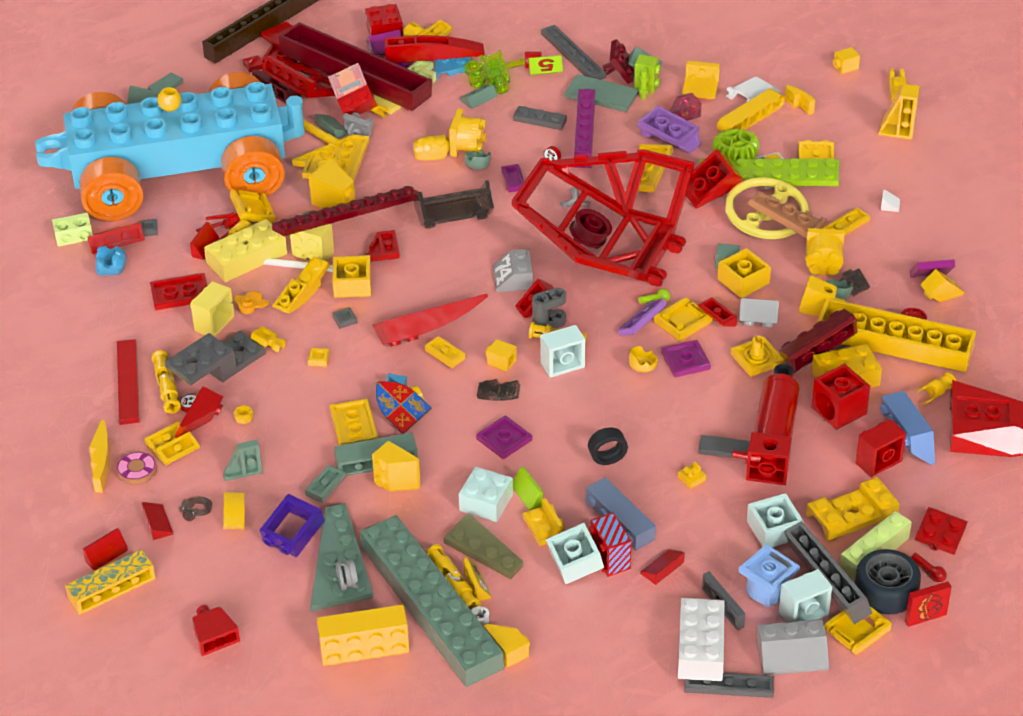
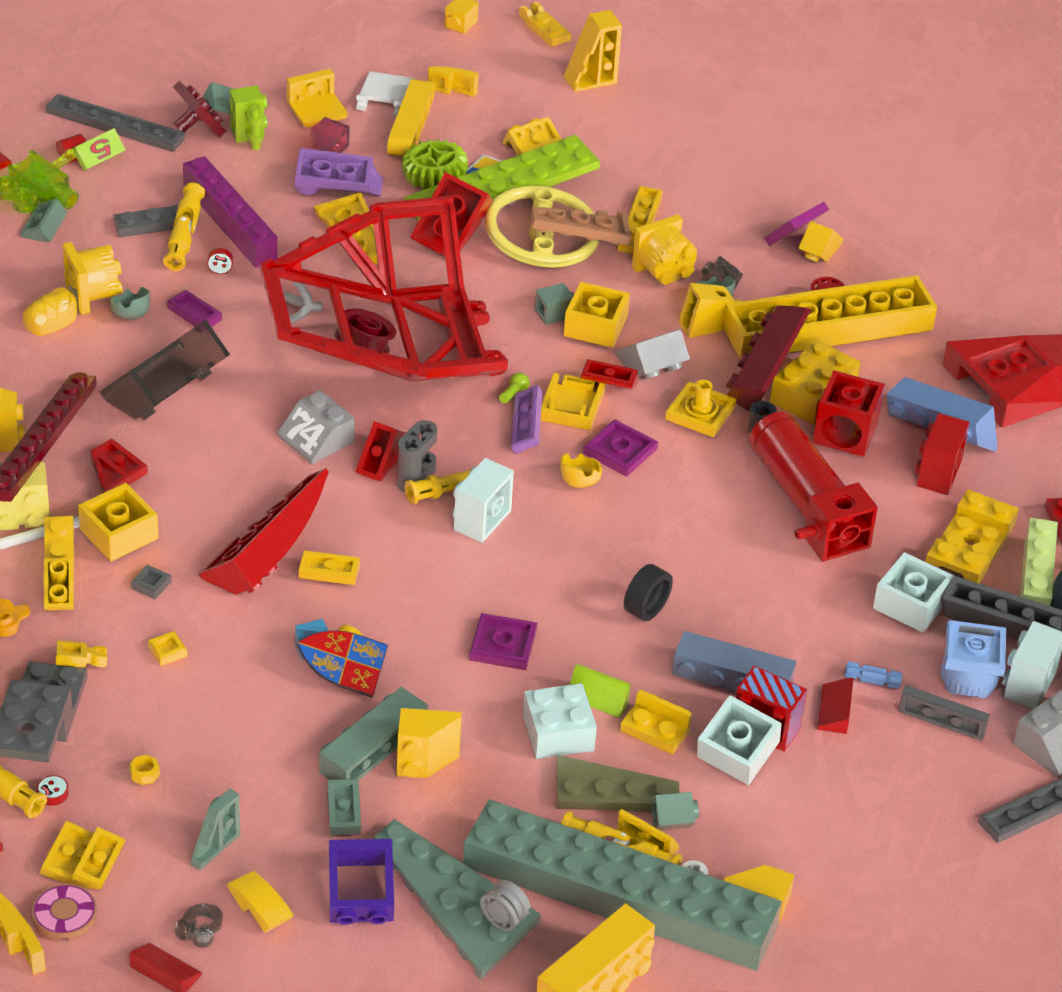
camera: 40 degrees left, 0 degrees up
(201, 411) = (85, 787): red slope -> none
(353, 422) = (300, 713): yellow tile -> none
(494, 391) = (445, 586): clear smoke slope -> none
(499, 574) = (674, 810): none -> sand green brick
(501, 355) = (404, 539): yellow brick -> none
(548, 126) = (183, 226): none -> yellow piece
(606, 93) = (227, 156): sand green tile -> none
(692, 475) = (764, 583): yellow tile -> none
(701, 639) = (970, 769): white brick -> none
(705, 558) = (873, 675): none -> medium blue axle
(721, 446) = (767, 532): dark grey tile -> none
(890, 202) = (666, 166): white slope -> none
(937, 387) = (925, 359): yellow piece -> none

